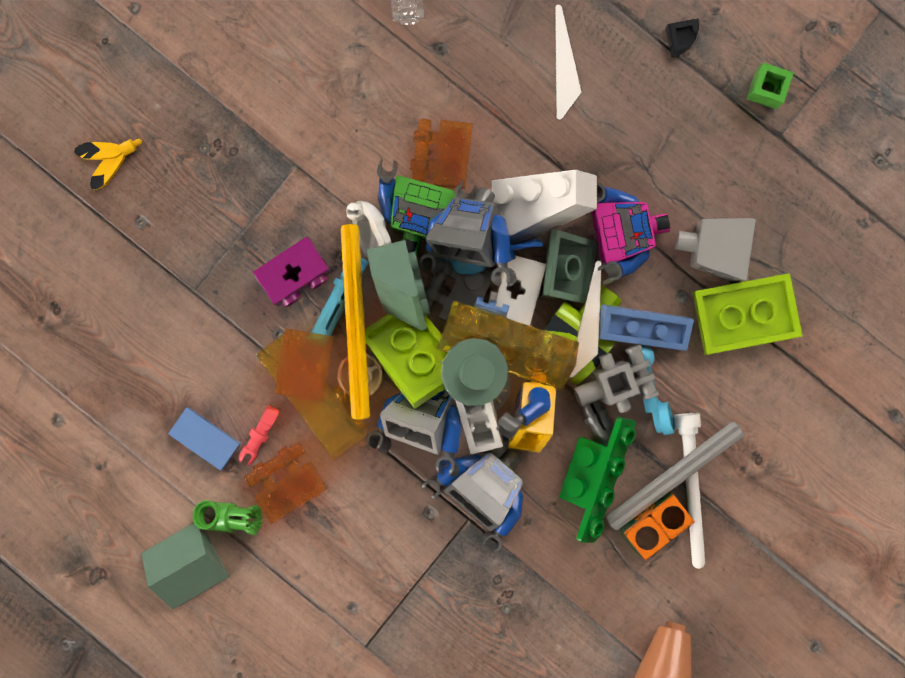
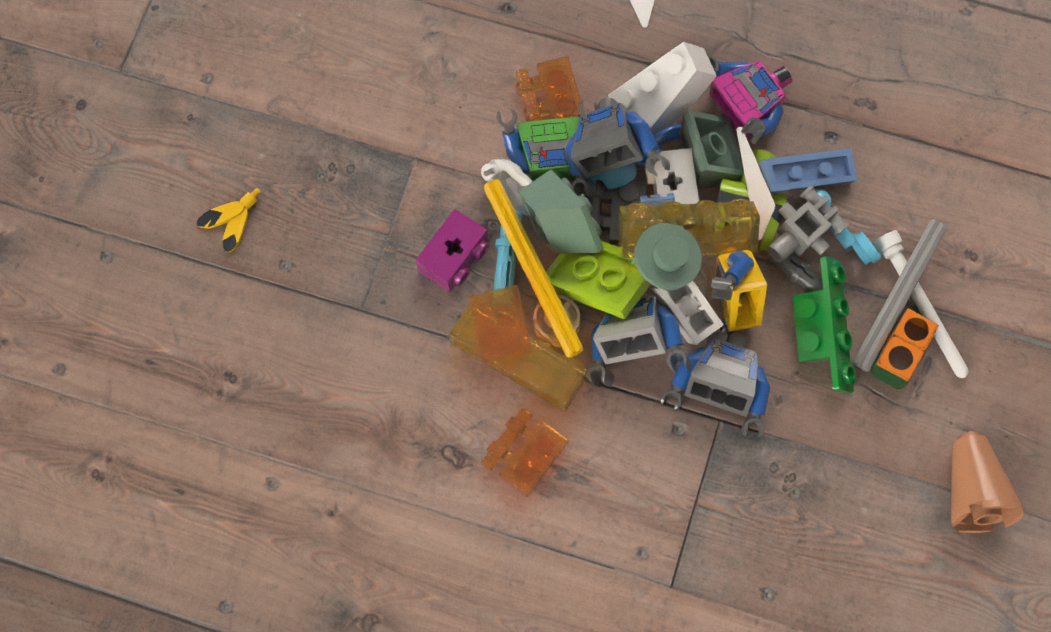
camera: 15 degrees left, 15 degrees down
(183, 566) = (456, 574): sand green slope -> none
(204, 438) = (427, 442): medium blue tile -> none
(222, 519) = (482, 505): bright green connector -> none
(259, 434) = (480, 415): coral piece -> none
(720, 246) = (845, 77): light grey torso -> none
(747, 314) = (898, 126): lime plate -> none

